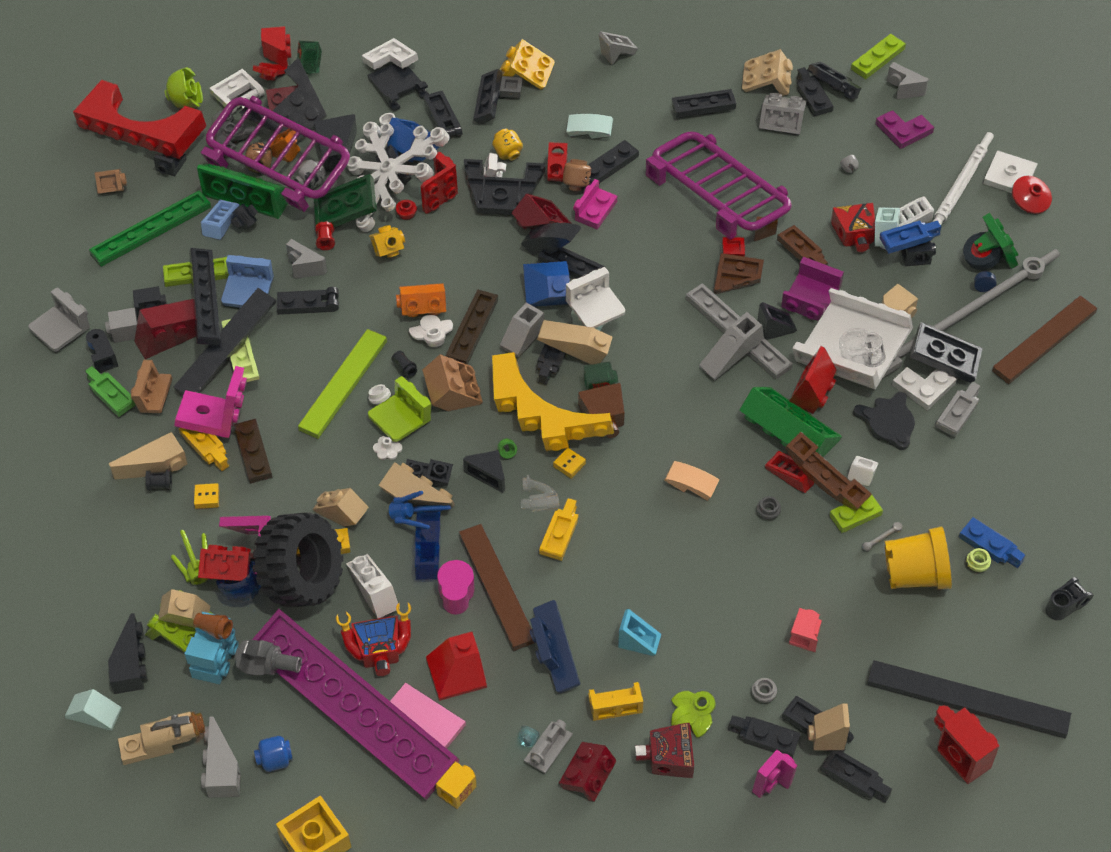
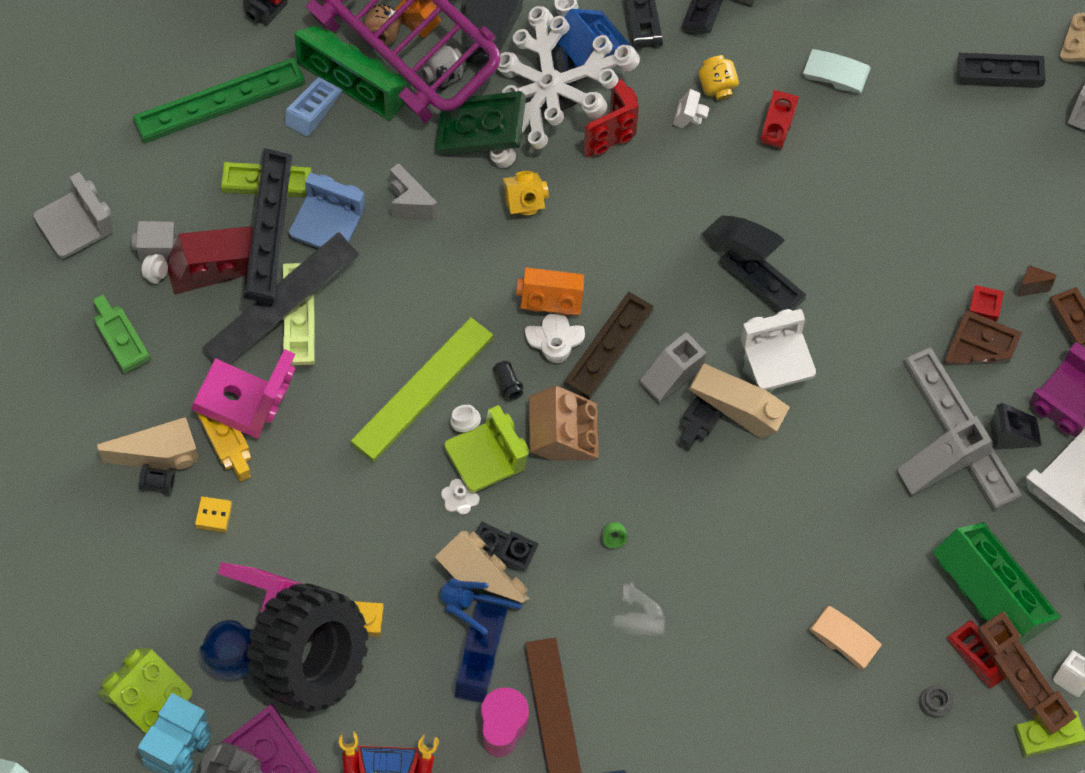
camera: 10 degrees right, 10 degrees up
(104, 356) = (119, 264): black leg -> none
(110, 181) = (180, 19): medium nougat bracket -> none
(125, 662) = (65, 730): black slope -> none
(126, 342) = (154, 268): none -> white plate
(148, 298) = (195, 214): black brick -> none
(150, 388) = (172, 344): medium nougat bracket -> none
(181, 607) = (149, 680): tan slope -> none
(191, 573) = (179, 621): lime plant -> none
(215, 625) = (182, 719): dark orange cone -> none
(223, 564) = (217, 623): red bracket -> none
(244, 216) = (344, 112): black gear -> none
(253, 451) = (285, 462): dark brown plate -> none
(308, 301) = (402, 257): black plate -> none
(325, 235) = (444, 164): red bush -> none
(341, 506) = (381, 572): tan slope -> none
(373, 585) = (398, 694): white slope -> none
(406, 209) = (561, 152): red plate -> none
(486, 468) = (581, 559): black slope -> none
(500, 194) = (692, 151): black wing -> none
(535, 413) = (659, 494): yellow arch -> none
(537, 211) = (739, 195): dark red slope -> none
(546, 283) = (721, 302): blue slope -> none
(560, 531) = (655, 672): yellow hinge -> none
(569, 463) = (691, 574): yellow tile -> none
(576, 174) = (801, 145): medium nougat head -> none
(594, 205) = (814, 196): dark pink bracket -> none
(599, 375) = (759, 461): clear green brick -> none
(604, 400) = (754, 507): reddish brown torso -> none
(612, 161) = (849, 134): black plate -> none
(725, 217) = (987, 261): magenta bar -> none
(815, 382) = (1043, 534): red slope -> none

